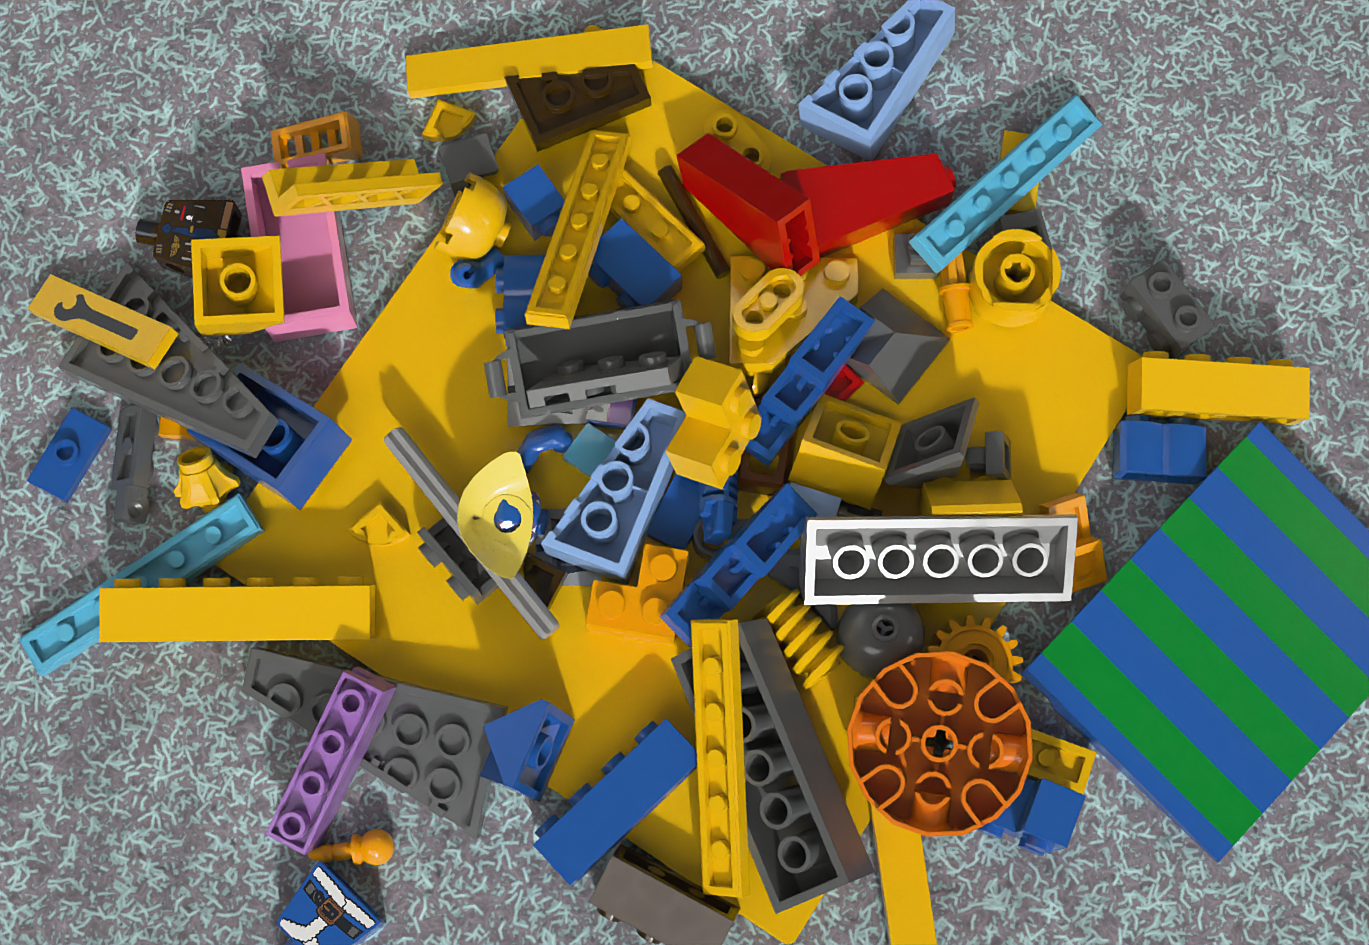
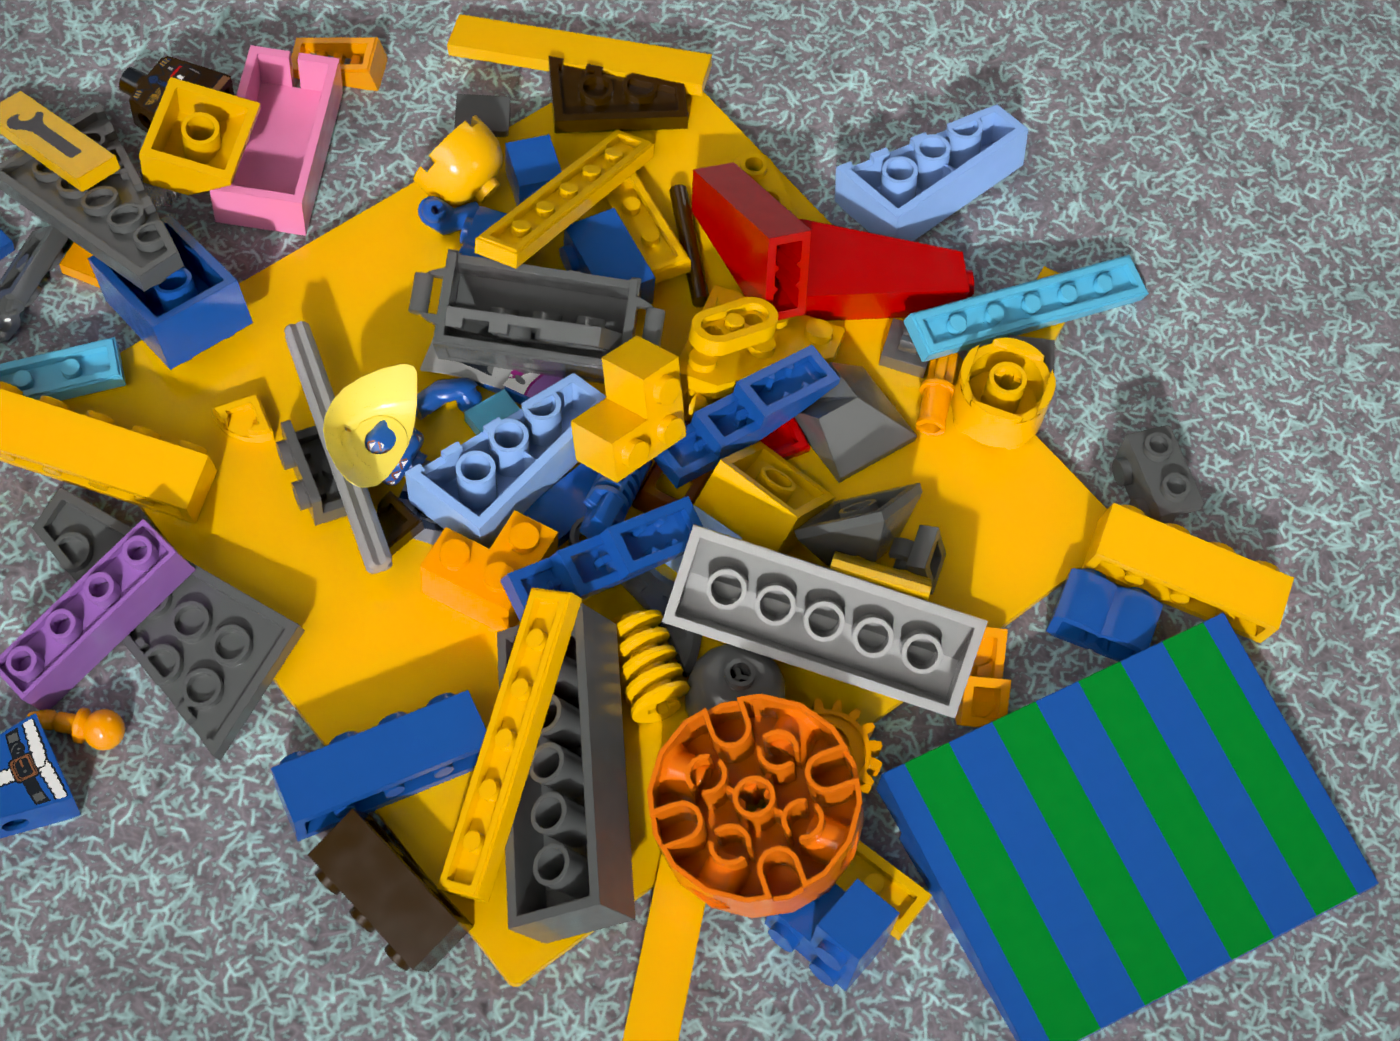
camera: 10 degrees right, 15 degrees down
(203, 479) = (85, 314): yellow rock -> none
(347, 186) = (350, 94): yellow fence -> none
(447, 121) = (476, 81): yellow tile -> none
(526, 747) = (308, 670): blue slope -> none

